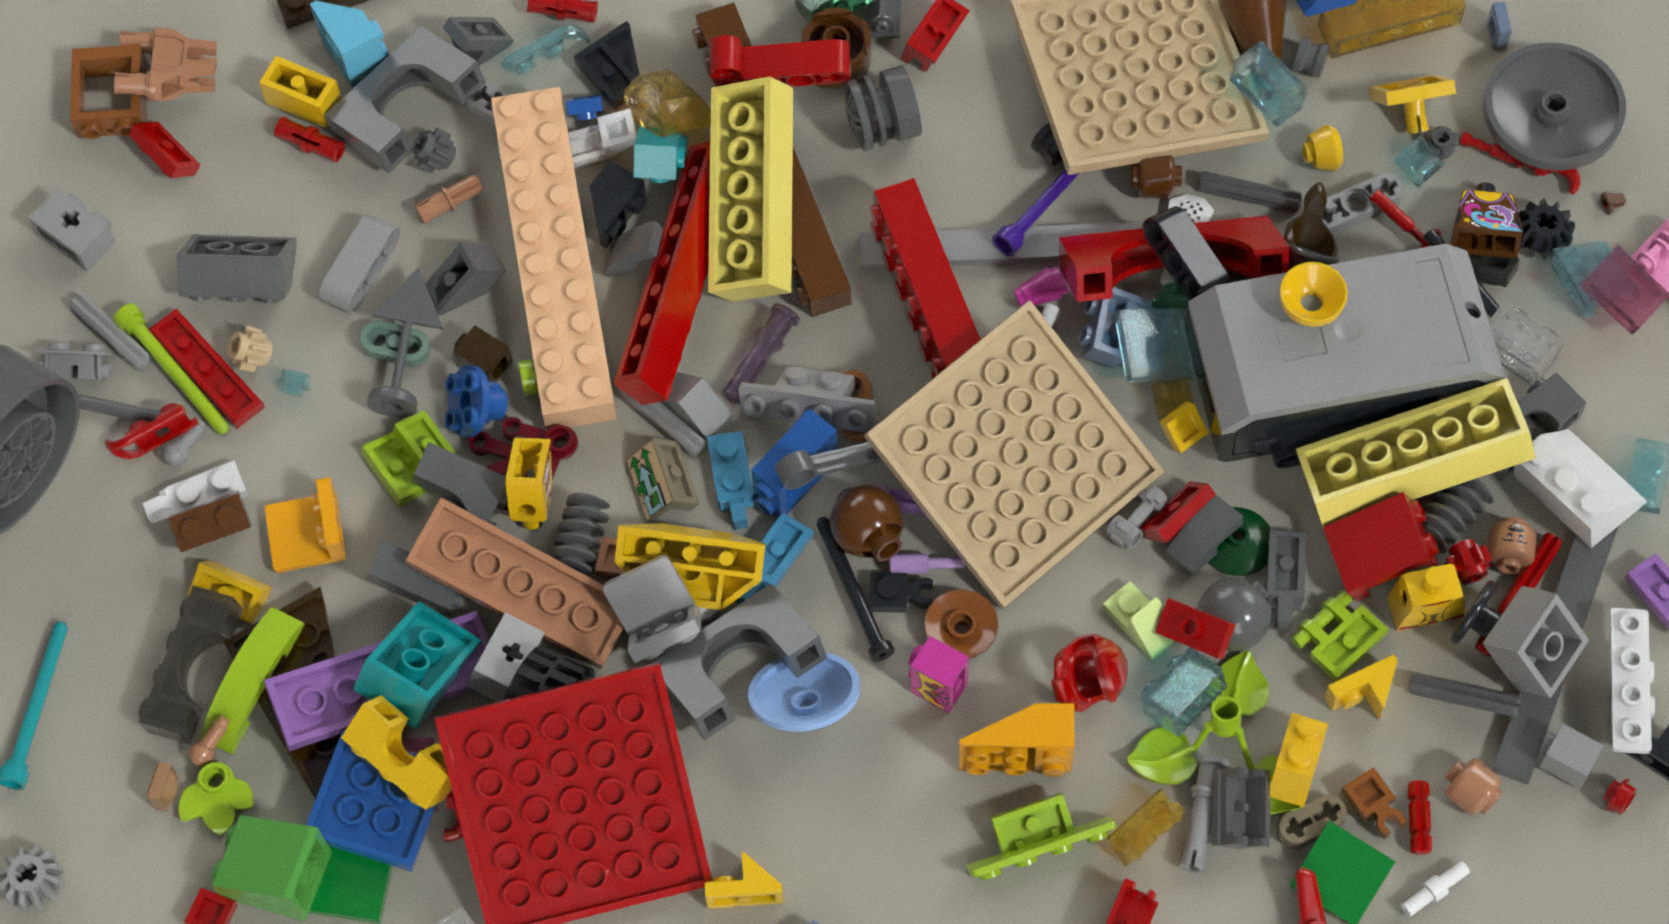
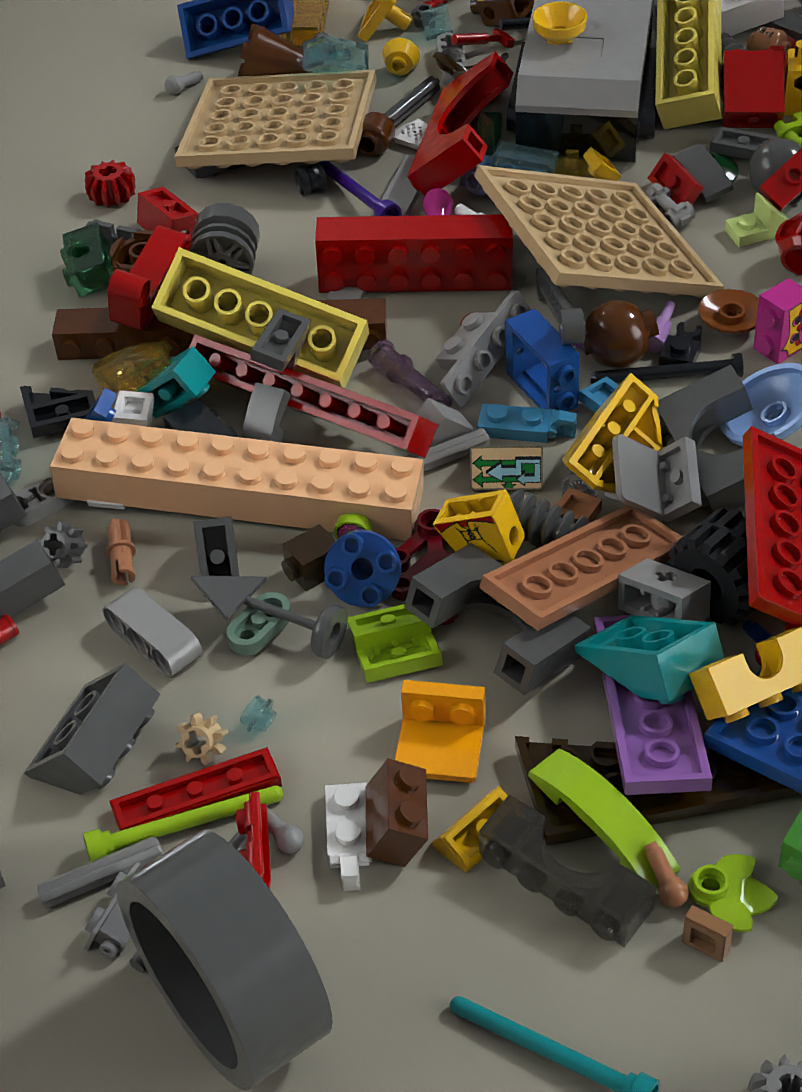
camera: 70 degrees left, 20 degrees down
(702, 219) = (281, 341): none -> dark grey slope
(1184, 252) = (458, 98): beam -> none

